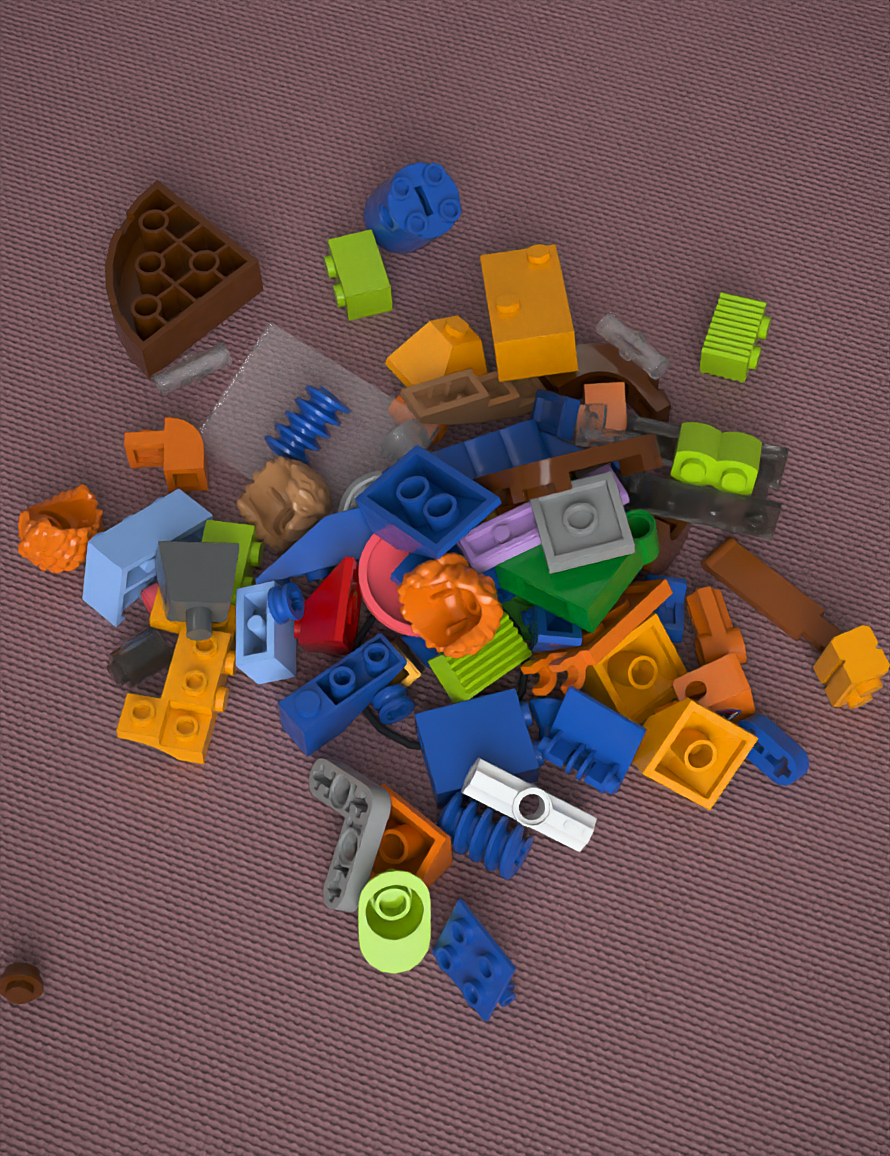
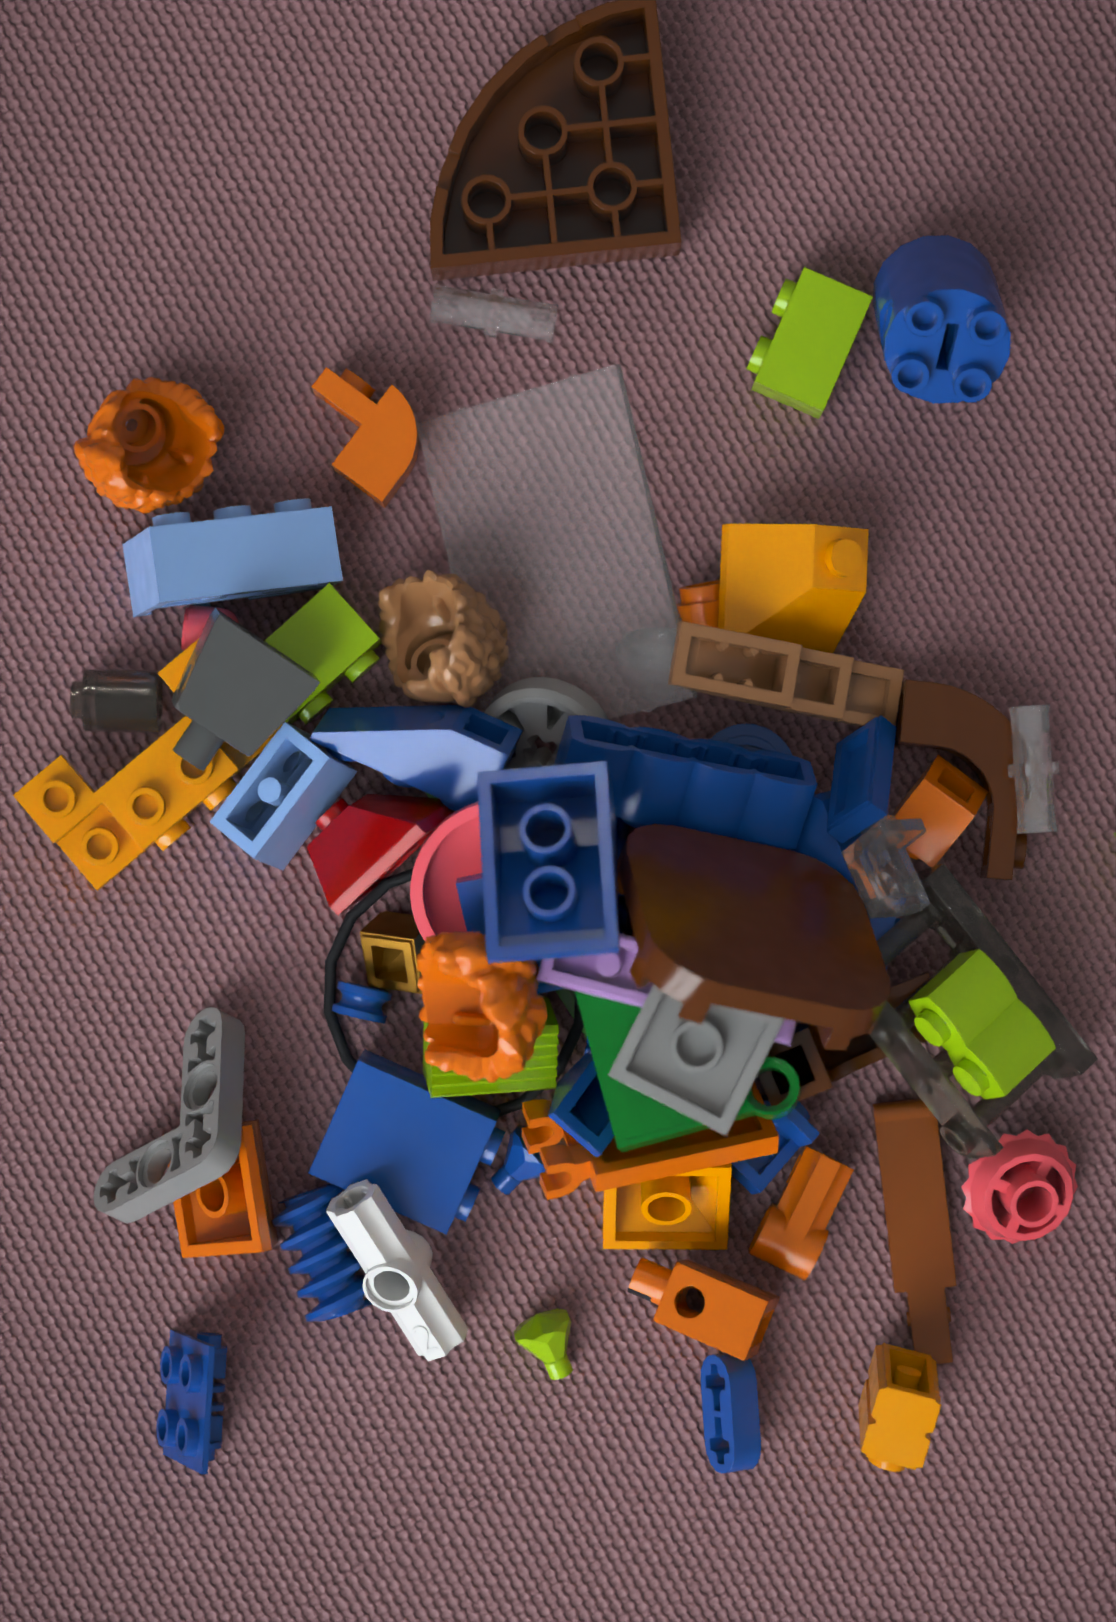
camera: 30 degrees right, 30 degrees up
(286, 603) = (320, 799): blue bush -> none
(307, 424) = (545, 561): blue piece -> none
(339, 694) = (311, 947): blue slope -> none
(394, 921) = (148, 1274): piece -> none
(528, 313) = (953, 604): light orange brick -> none
(592, 741) = (534, 1250): blue hinge -> none
(640, 791) = (547, 1339): none -> lime rock
(692, 751) = (622, 1353): light orange slope -> none
(810, 540) = (1021, 1188): none -> coral piece

